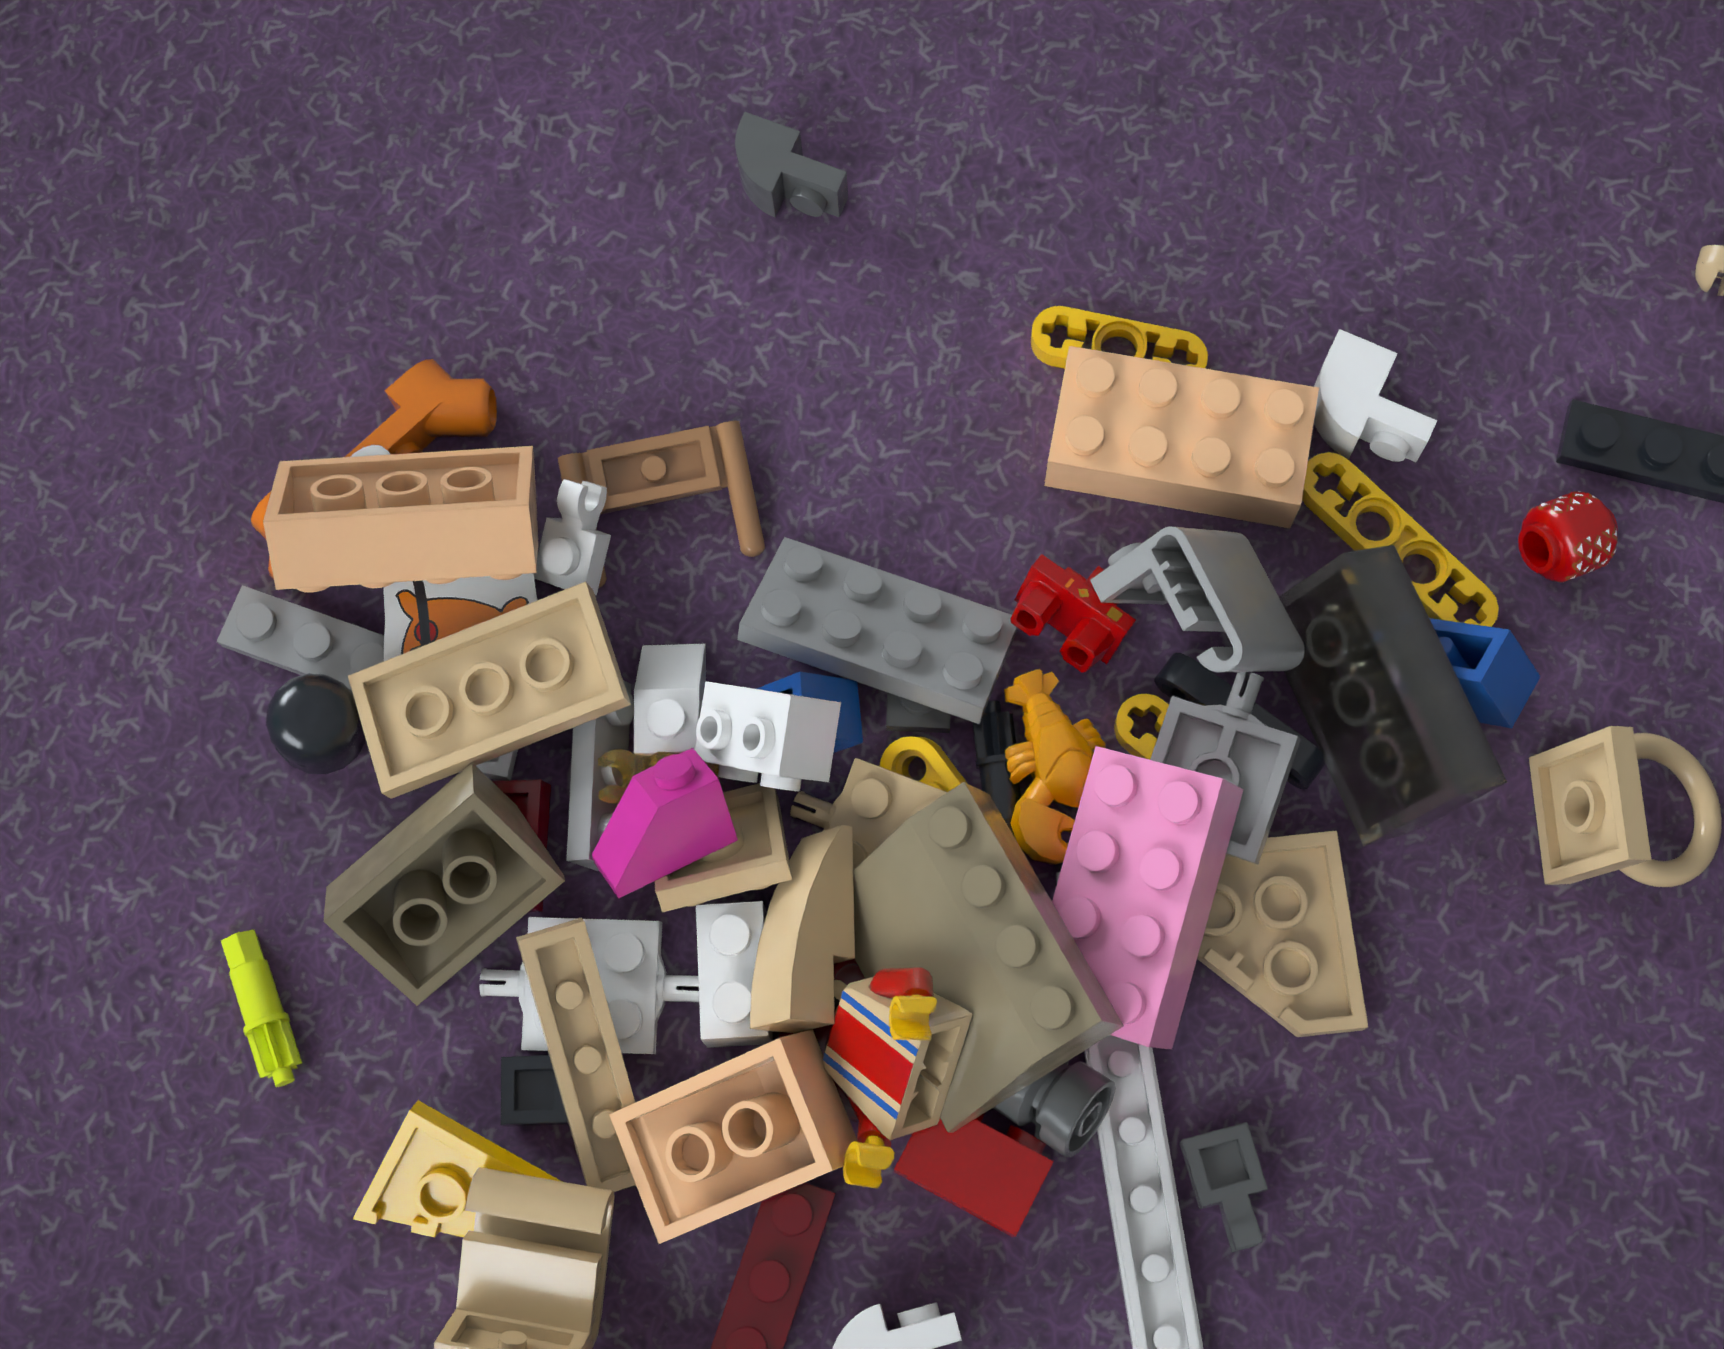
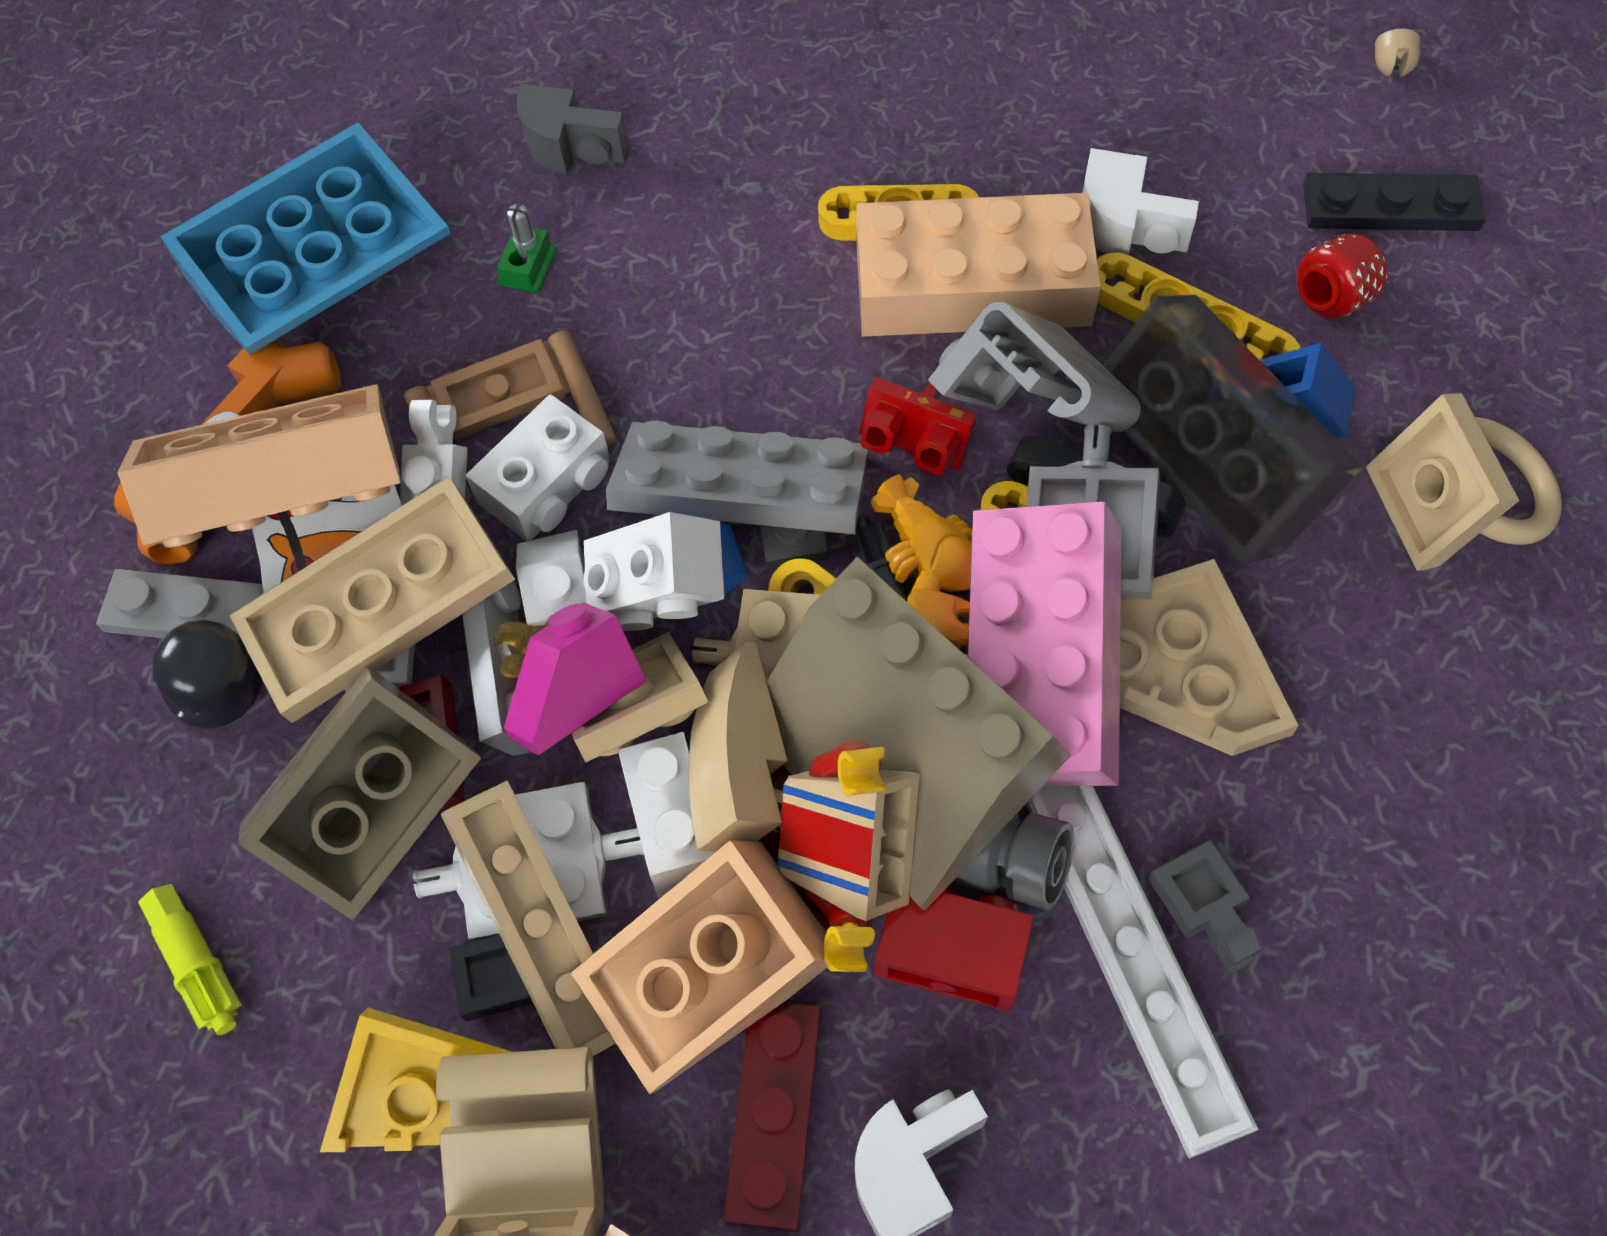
camera: 15 degrees left, 10 degrees down
(486, 259) = (303, 238): none -> dark azure slope
(681, 573) = (540, 468): none -> white brick
(719, 308) = (526, 253): none -> green piece

